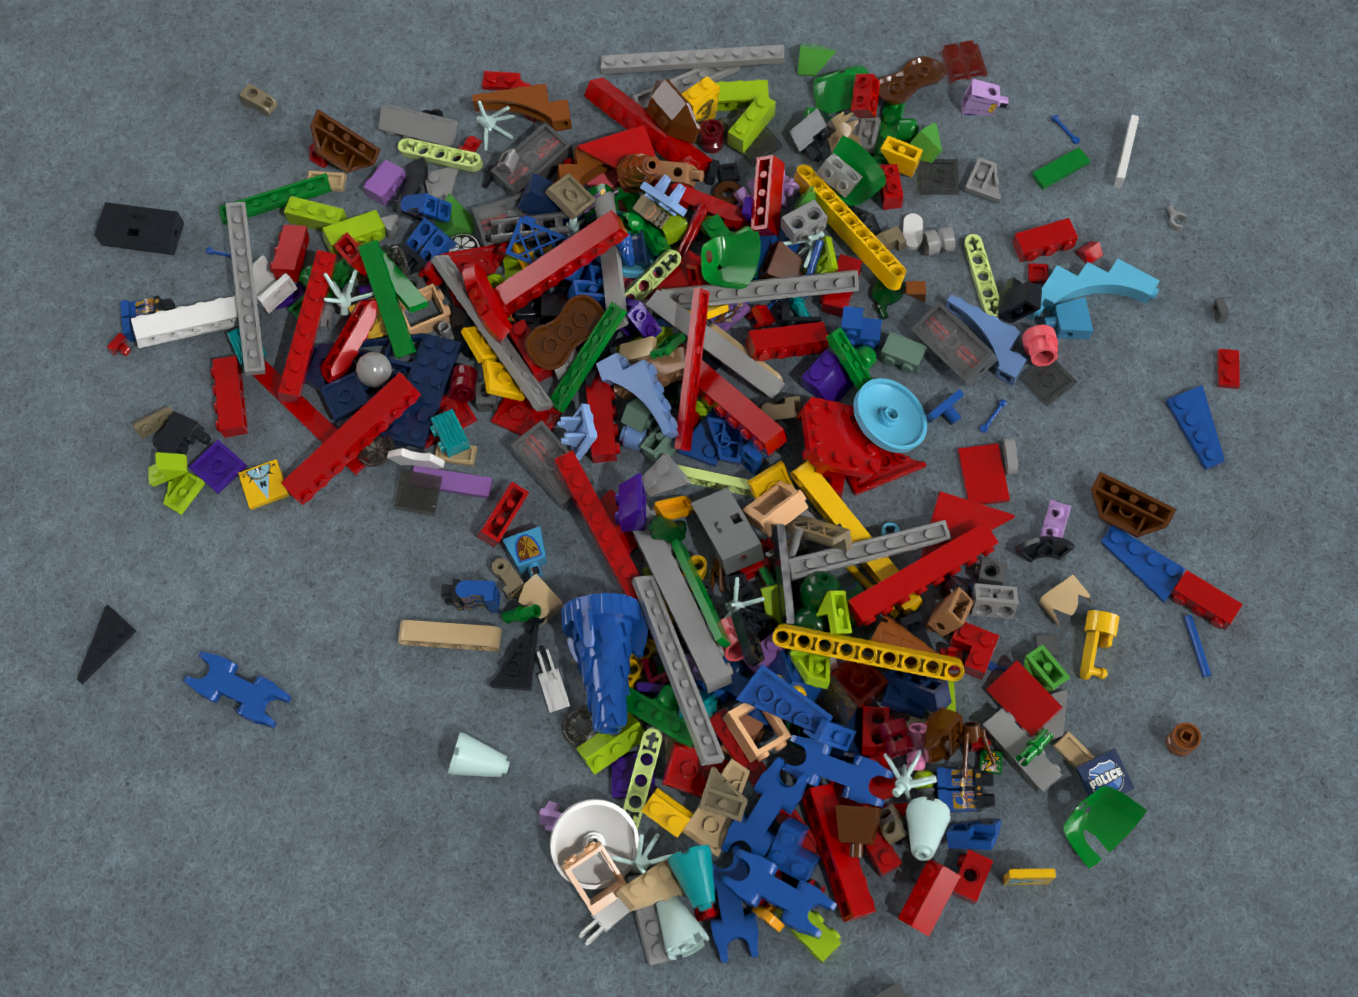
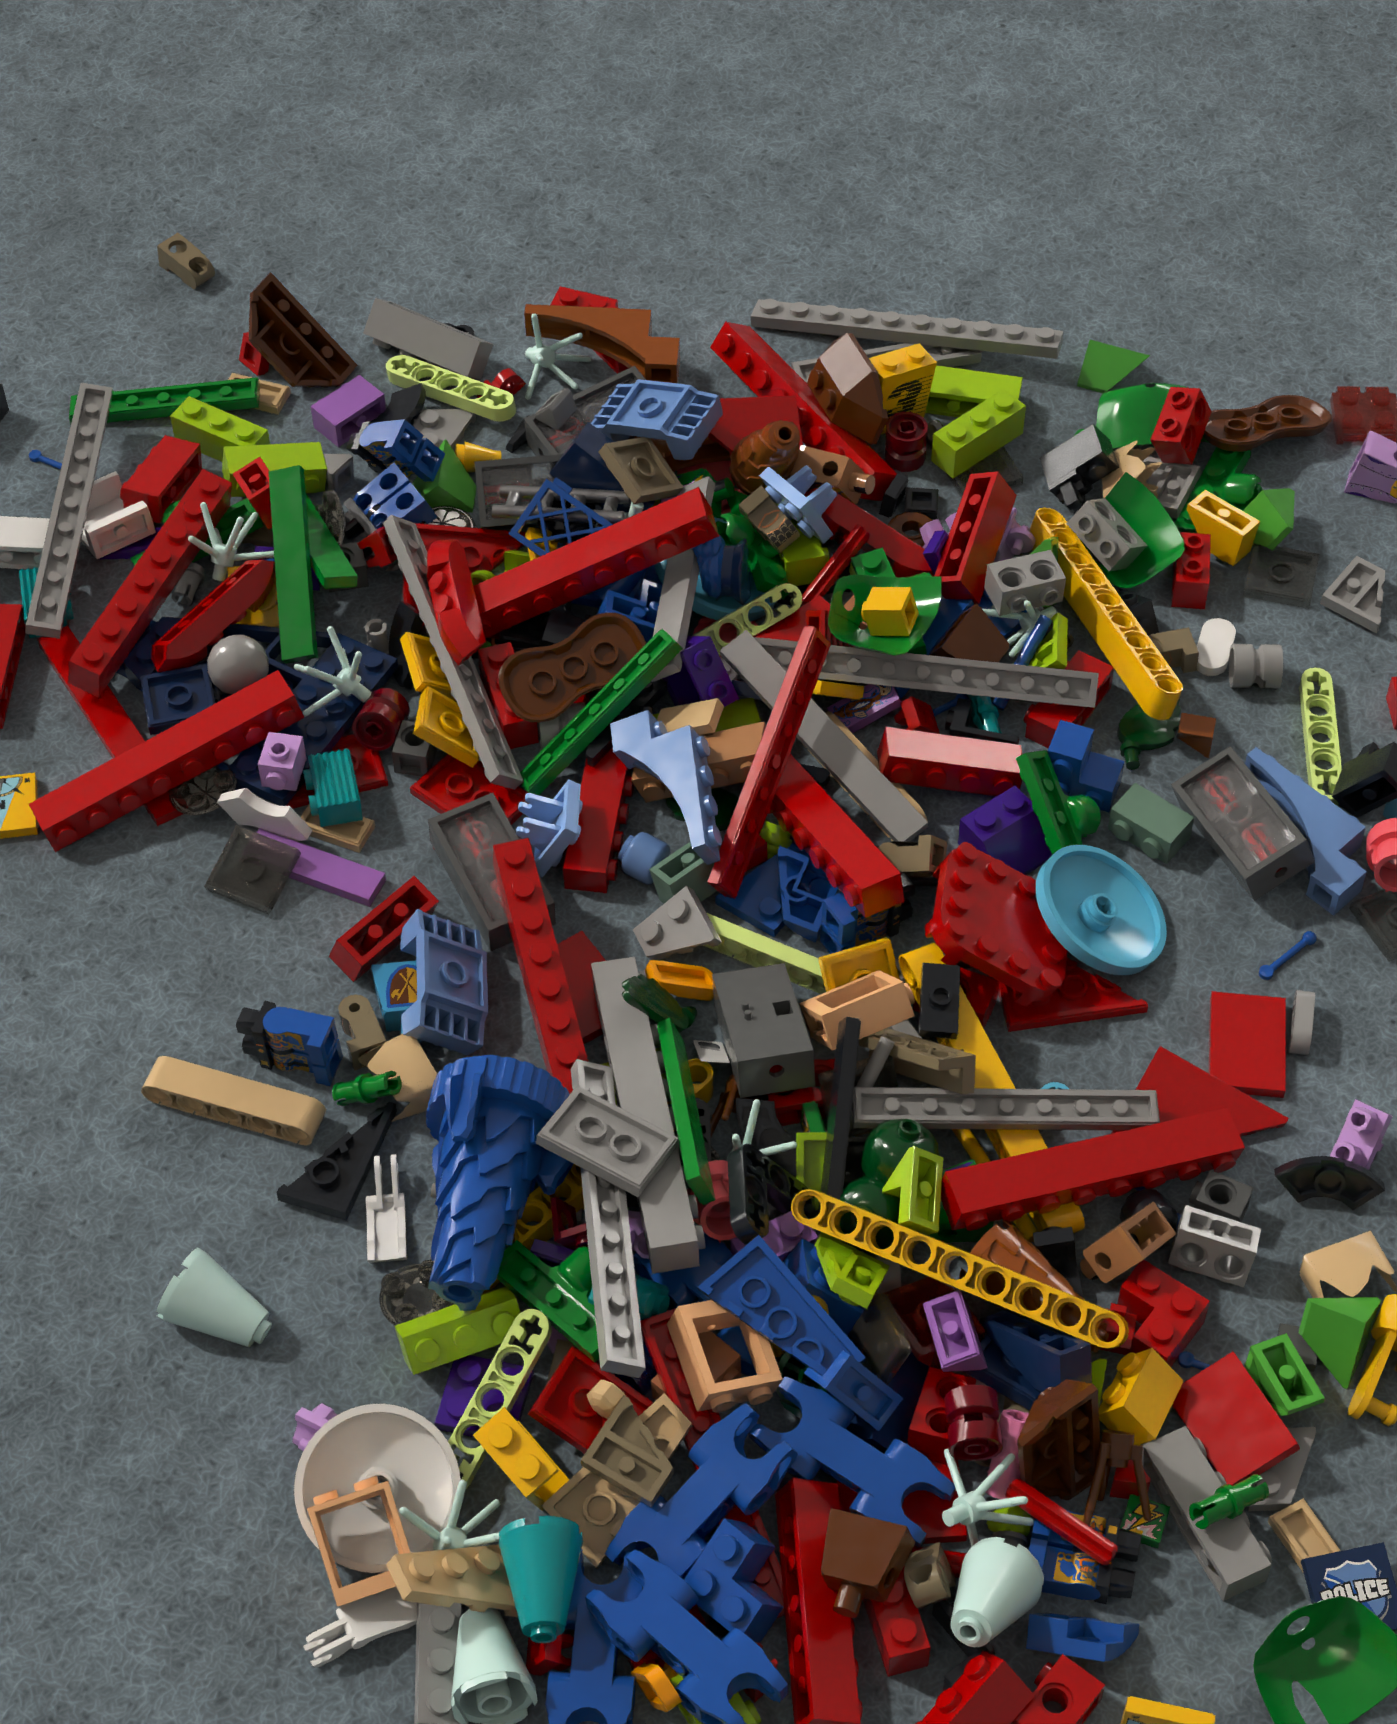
camera: 10 degrees right, 15 degrees down
(417, 426) = (282, 761): none -> lavender brick
(429, 293) = (353, 625): light nougat window -> none
(438, 366) = (345, 682): none -> light aqua plant
(469, 198) = (470, 452): none -> yellow cone
(549, 540) = (449, 983): none -> medium blue plate
(570, 157) = (660, 412): none -> medium blue plate
(631, 504) = (607, 946): dark purple slope -> none
(638, 416) = (660, 821): sand green brick -> none
(666, 626) = (607, 1141): none -> light grey tile
(667, 345) = (738, 719): green tile -> none
(701, 547) = (711, 1051): none -> white sticker
(701, 770) = (604, 1398): none -> tan tile
(734, 258) = (890, 611): none -> yellow brick
(820, 496) = (939, 1000): none -> black plate
(873, 688) = (954, 1333): none -> medium lavender slope
(947, 409) = (1205, 923): blue tile -> none
(952, 778) = (1063, 1522): none -> red axle
(975, 697) = (1140, 1395): none -> yellow brick
(1068, 634) = (1339, 1332): none -> bright green slope

